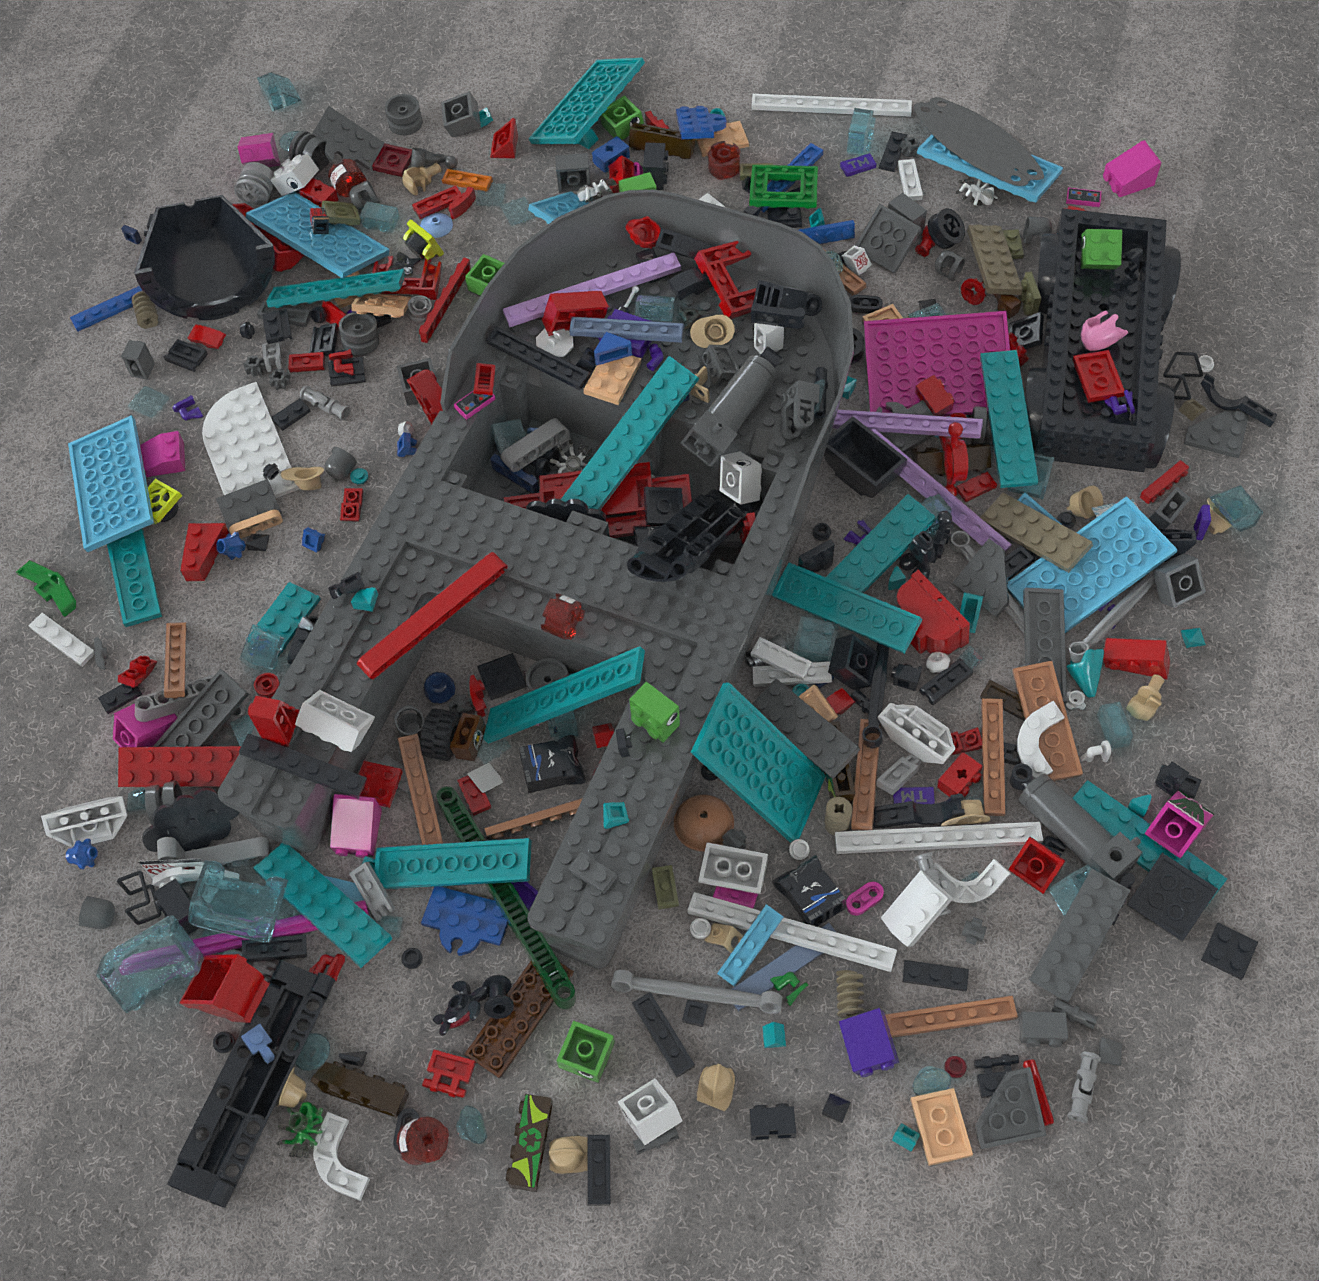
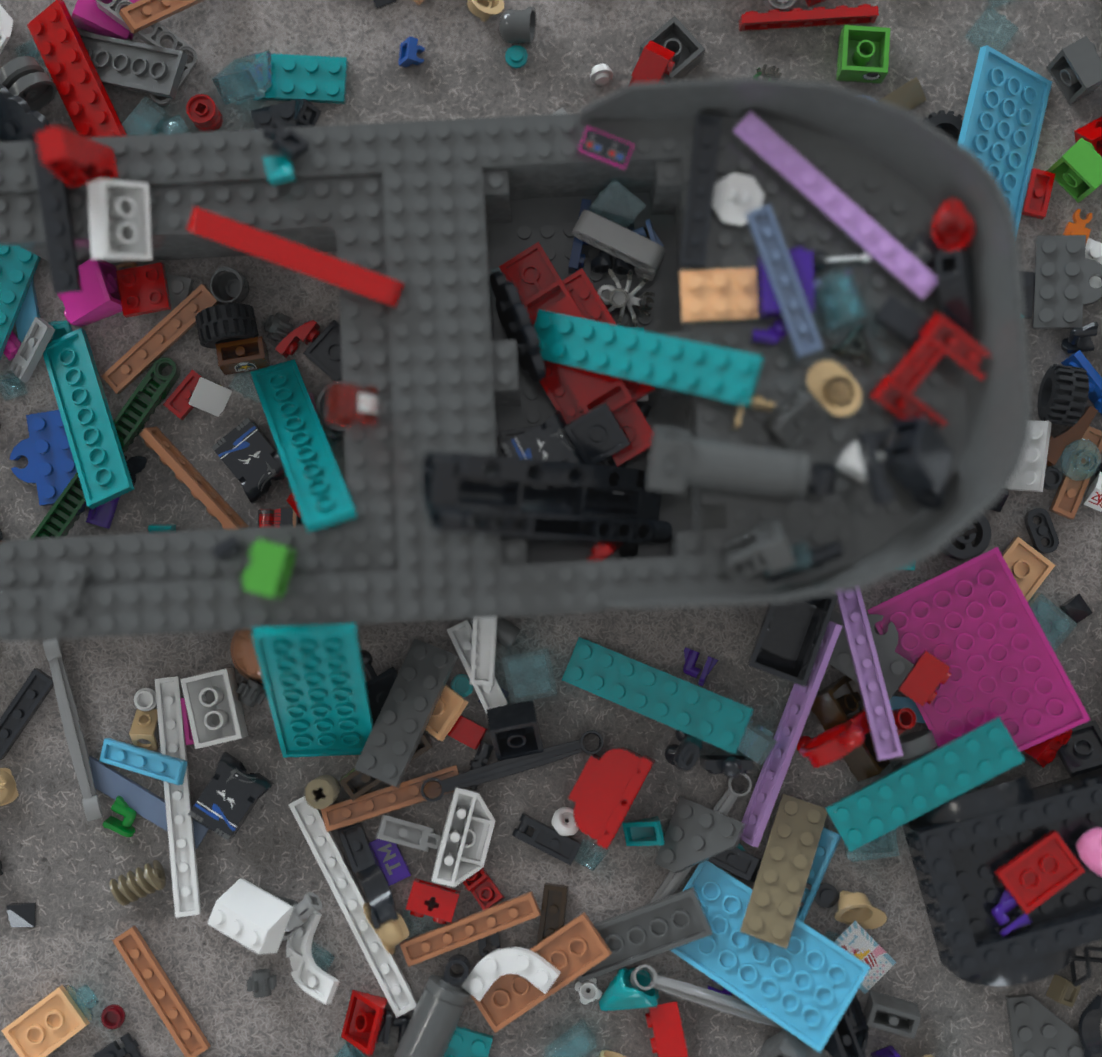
camera: 65 degrees right, 25 degrees up
(351, 504) = (474, 71): red slope -> none
(404, 445) = (579, 84): blue tile -> none
(439, 687) = (287, 292): dark blue hair -> none
(483, 373) = (653, 137): red slope -> none
(564, 306) = (789, 200): red wedge -> none
(586, 192) = (1058, 113): animal -> none
(587, 360) = (730, 255): black slope -> none
(612, 348) = (746, 275): blue slope -> none
(614, 814) = (144, 580): teal slope -> none
(665, 887) = (170, 645): olive plate -> none
(695, 1013) = (52, 736): black plate -> none
(740, 477) = (660, 514): white brick -> none
(774, 1035) = (67, 823): teal slope -> none
(799, 849) = (275, 763): white plate -> none
(818, 557) = (639, 639): black plate -> none
(821, 527) = (689, 619): black plate -> none
(847, 607) = (576, 701): teal plate -> none
(863, 898) = (250, 856): dark pink plate -> none
(869, 1042) = (93, 924): dark purple brick -> none
(896, 579) = (653, 731): teal slope -> none
(906, 676) = (532, 793): black brick -> none
(906, 1137) = (22, 996): teal slope -> none
(935, 975) = (200, 959): black plate -> none
(976, 486) = (831, 776): red plate -> none
(1103, 749) = (533, 1046): white piece -> none
(1164, 482) = (935, 993): red piece -> none

